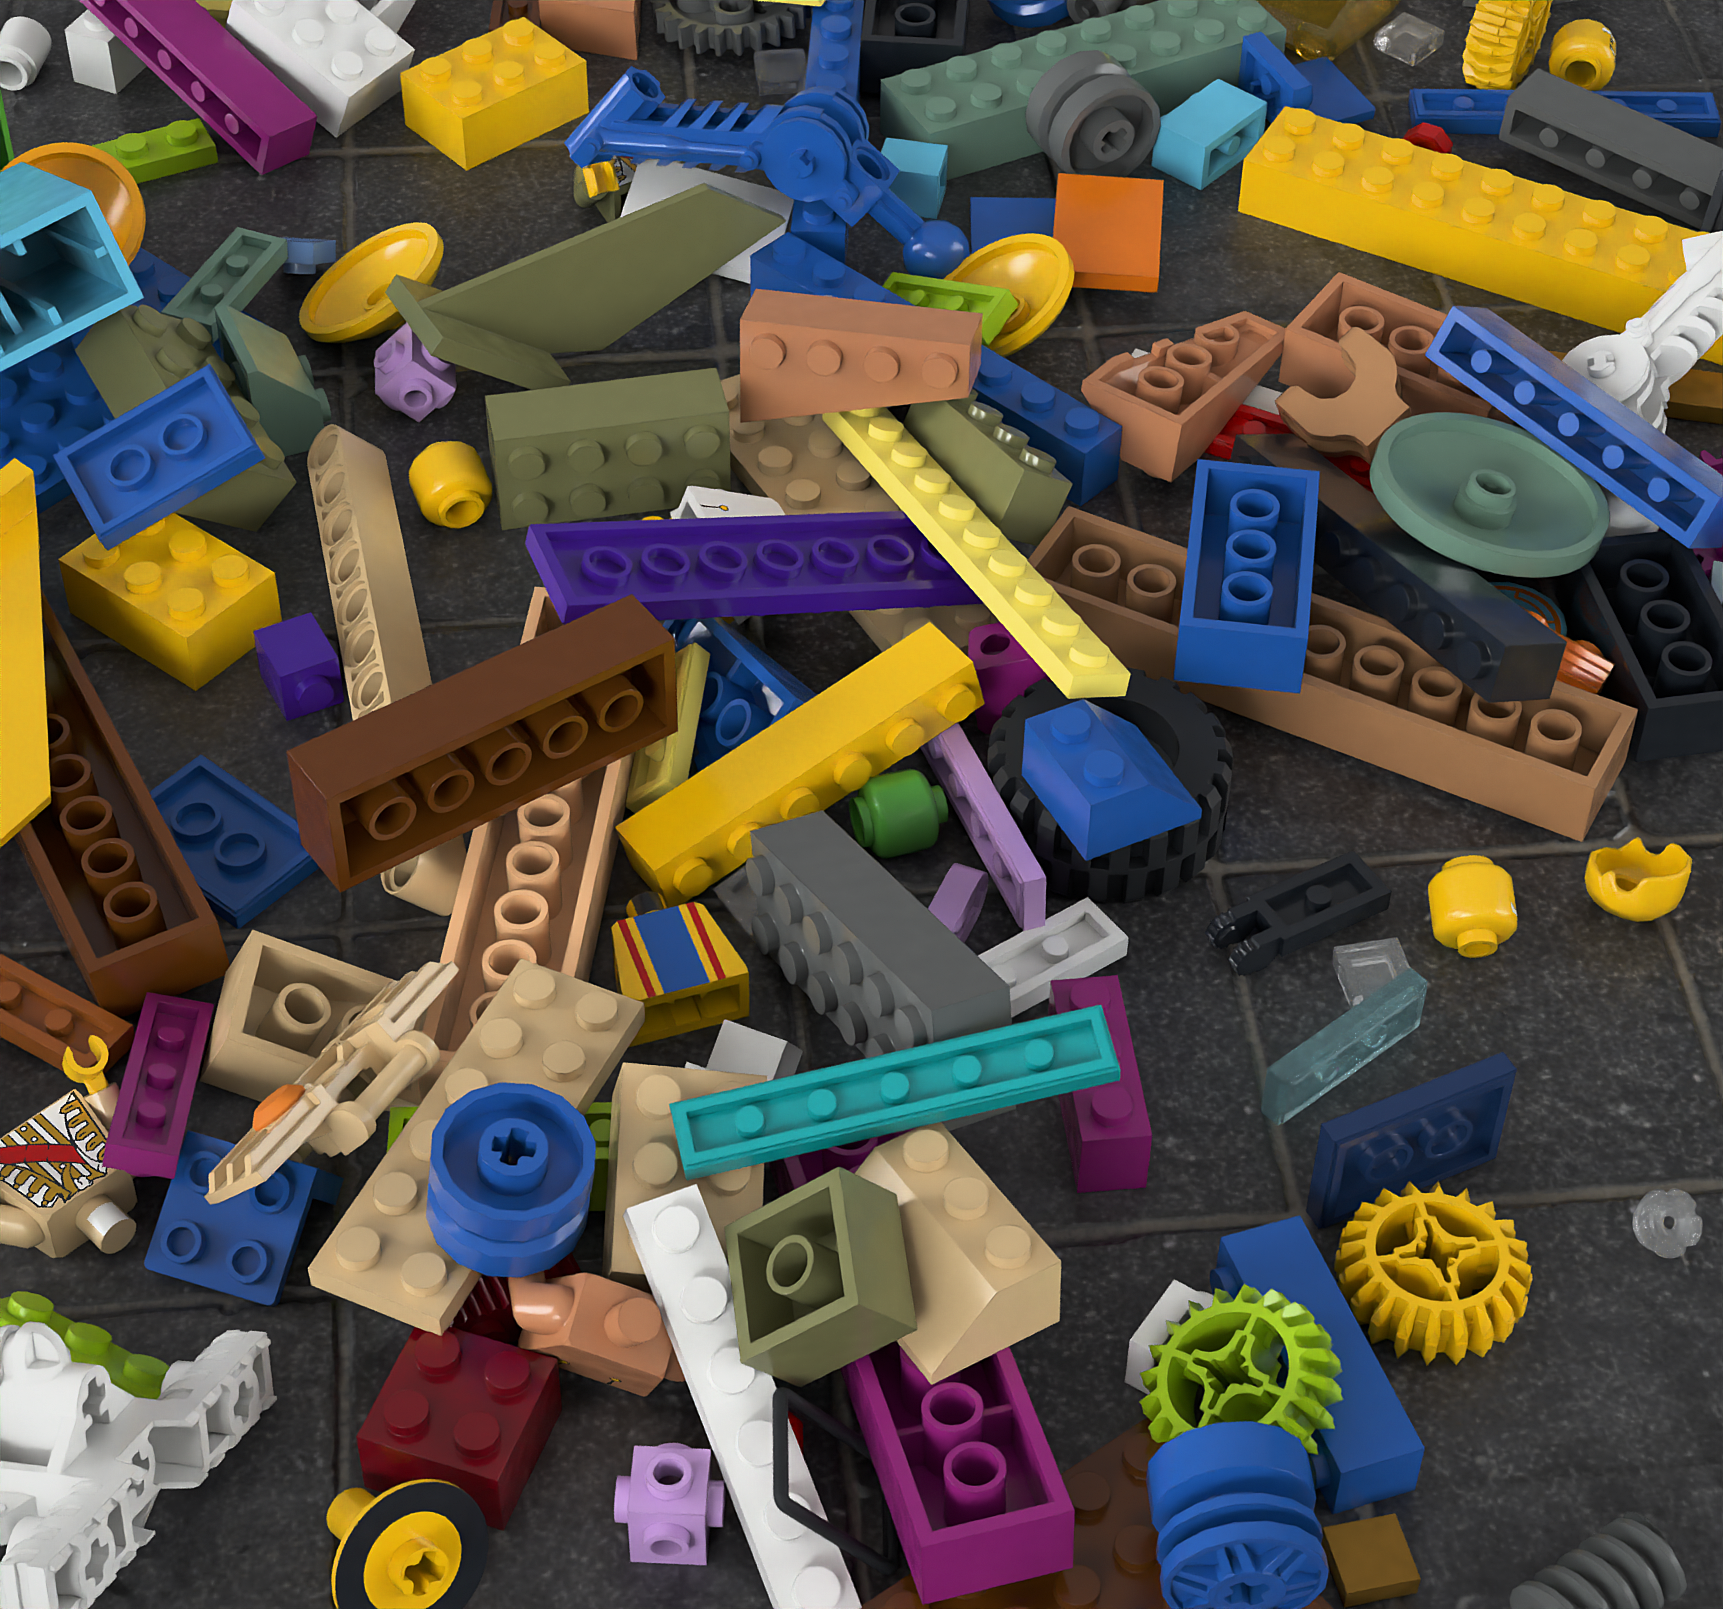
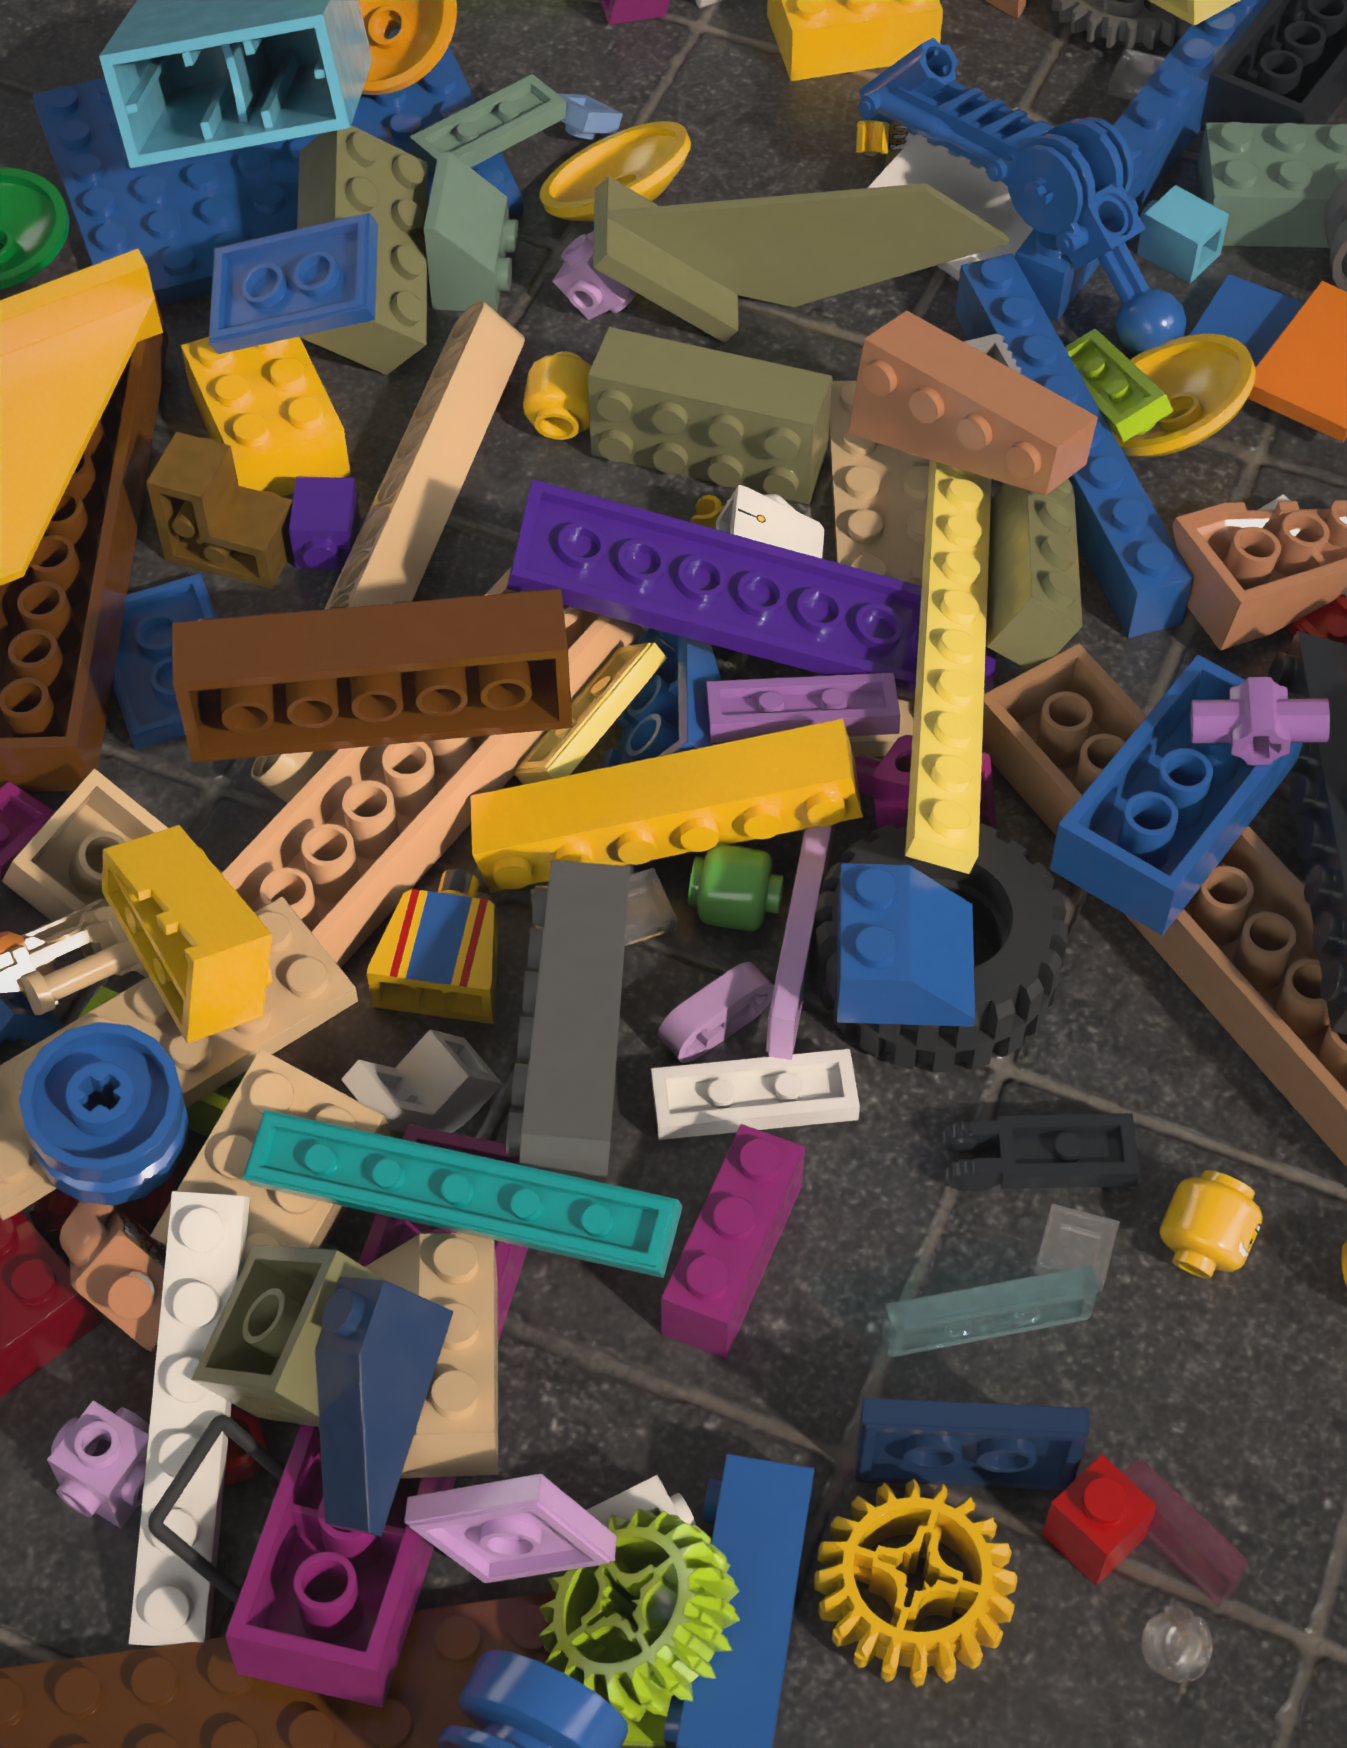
camera: 30 degrees right, 10 degrees up
(194, 701) = (214, 521): none -> pearl gold brick
(481, 997) = (189, 931): none -> yellow wedge
(841, 648) = (779, 704): none -> medium lavender plate
(936, 1278) = (371, 1390): none -> dark blue slope
(1103, 1354) = (511, 1528): none -> lavender tile
(1290, 482) = (1259, 721): none -> medium lavender axle
(1544, 1157) = (1099, 1519): none -> red brick
(1609, 1139) = (1188, 1537): none -> clear pink tile

